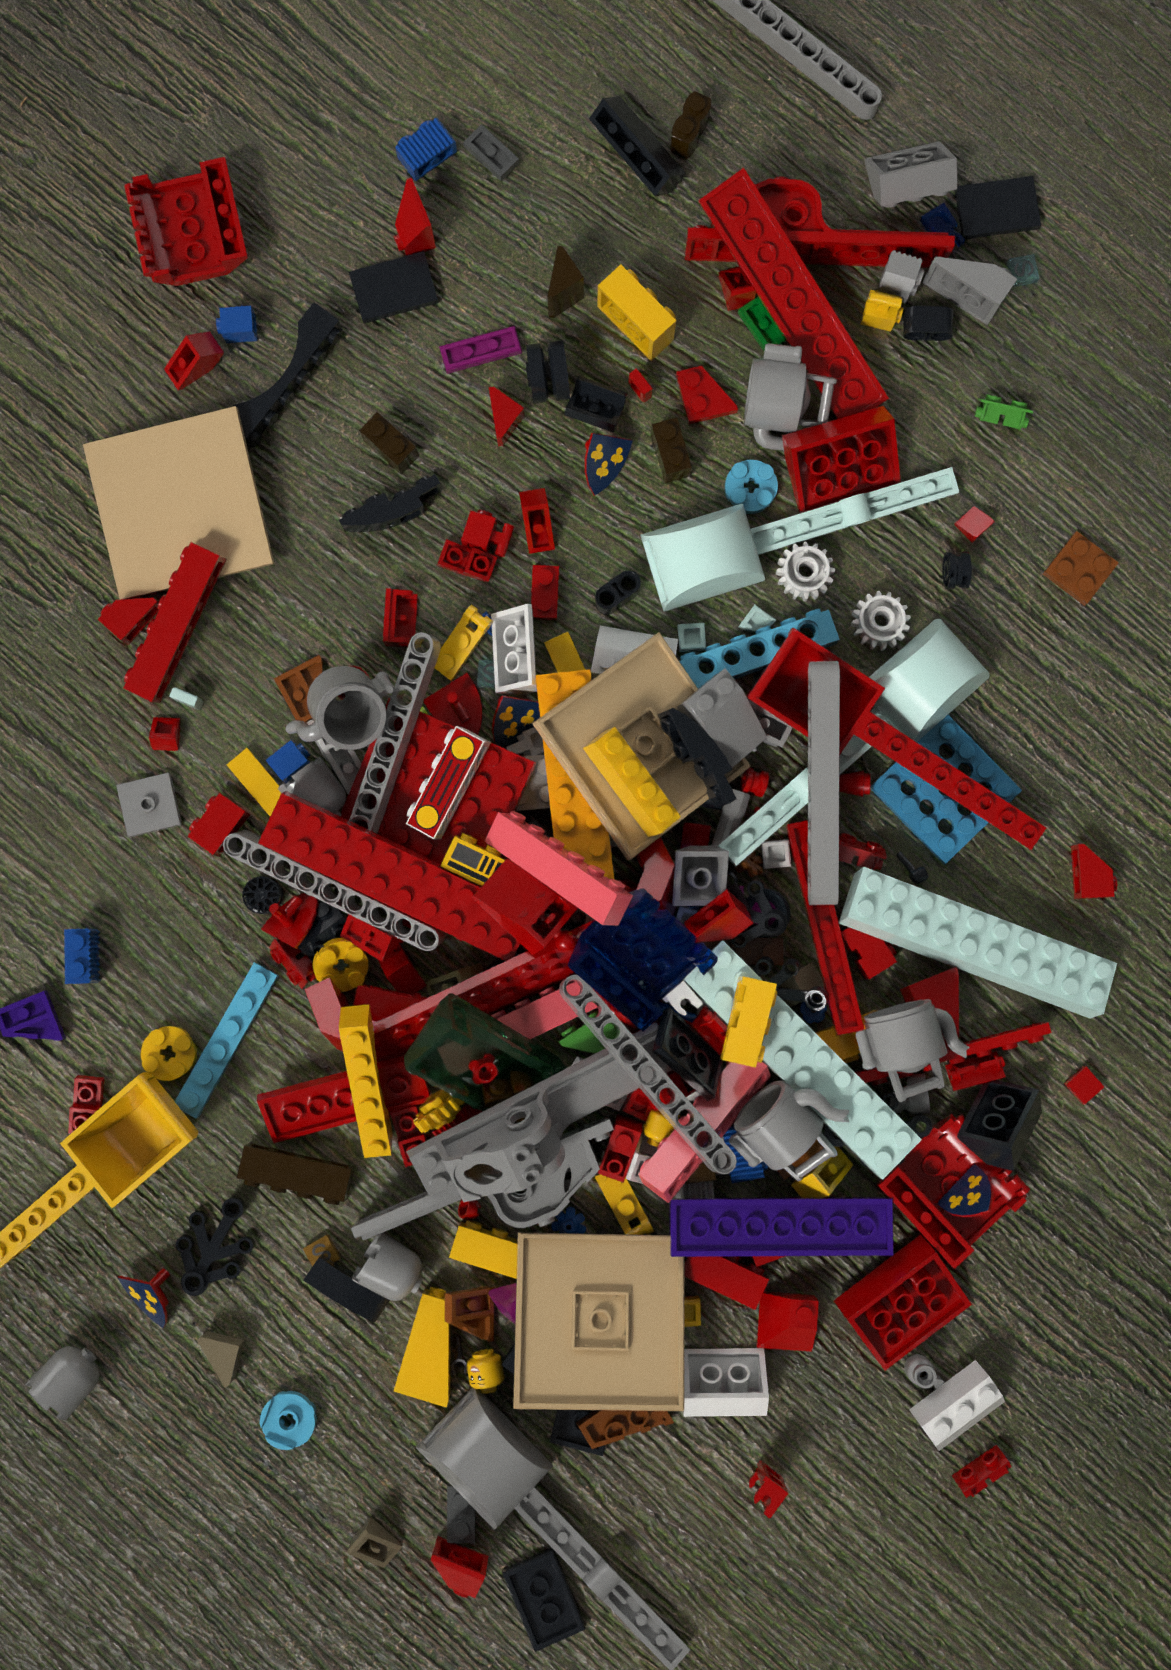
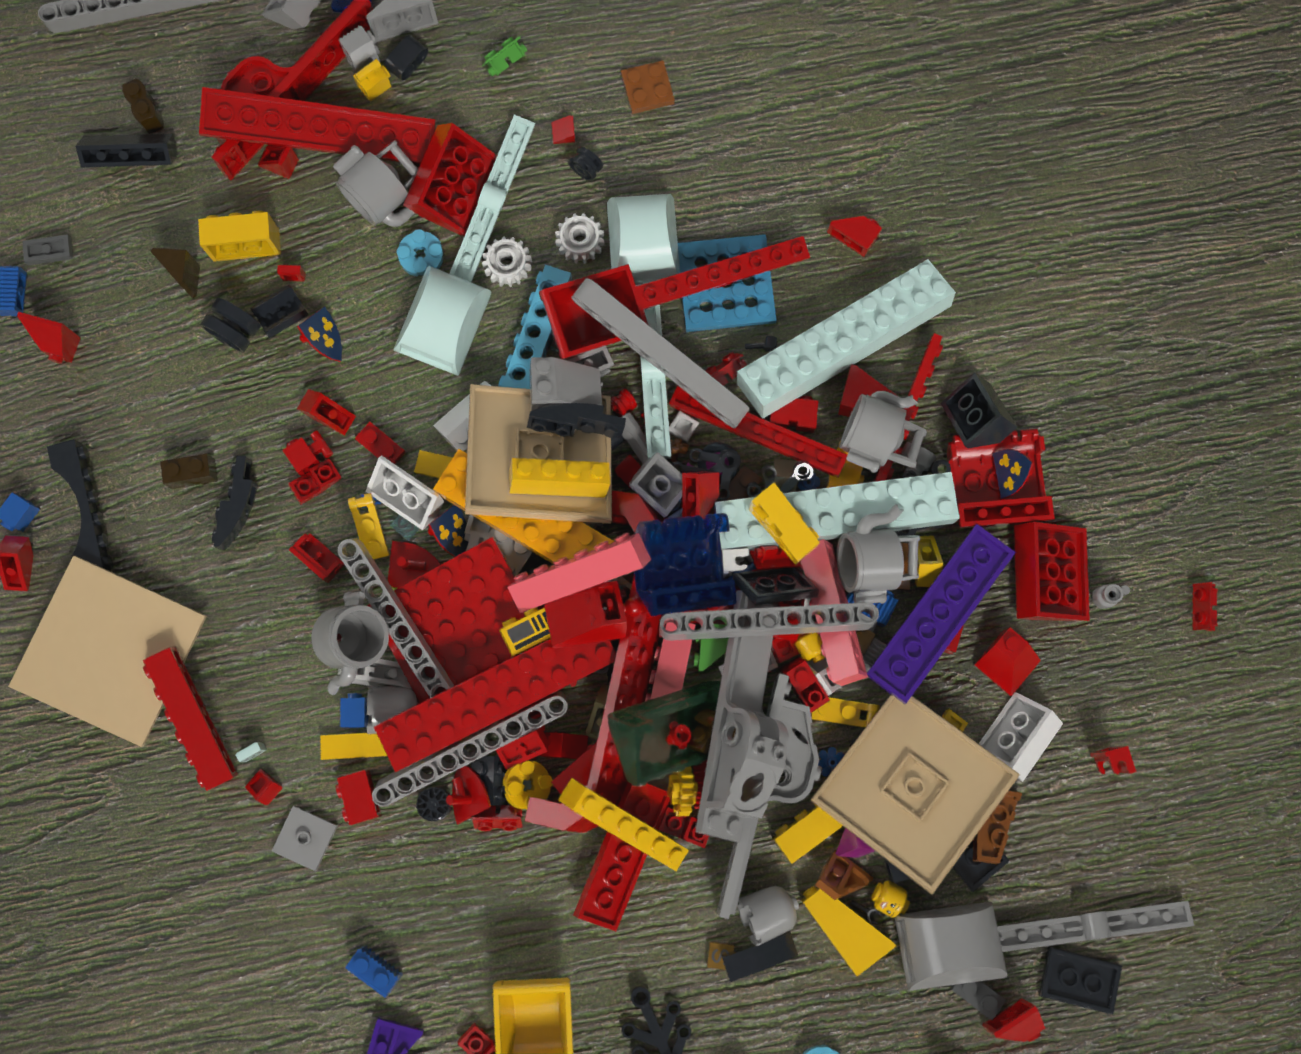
camera: 55 degrees left, 5 degrees down
(128, 617) = (159, 748): red slope -> none
(181, 1044) = (495, 946): yellow plate -> none
(226, 1040) = (516, 910): medium azure plate -> none
(296, 684) = (306, 665): dark orange wing -> none
(296, 1173) = (648, 931): dark brown brick -> none
(393, 287) = (83, 386): black tile -> none
(447, 782) = (458, 607): brick -> none
(469, 1209) = (767, 824): red hinge -> none
(480, 349) = (176, 361): magenta tile -> none
(506, 414) = (236, 377): red slope -> none
(618, 593) = (421, 395): black beam -> none
(670, 450) = (352, 286): dark brown brick -> none
(691, 637) = (490, 370): light aqua tile -> none
(703, 396) = (333, 238): red wing -> none
(728, 1277) = (948, 677): red brick -> none
(756, 619) = (513, 319): light aqua tile -> none
(761, 323) = (316, 162): green wing -> none
(855, 783) = (678, 335): red cone -> none
(957, 1405) = (1148, 588): white slope -> none
(975, 1071) = (931, 406): red hinge -> none
(1084, 1085) = (993, 343): red tile -> none

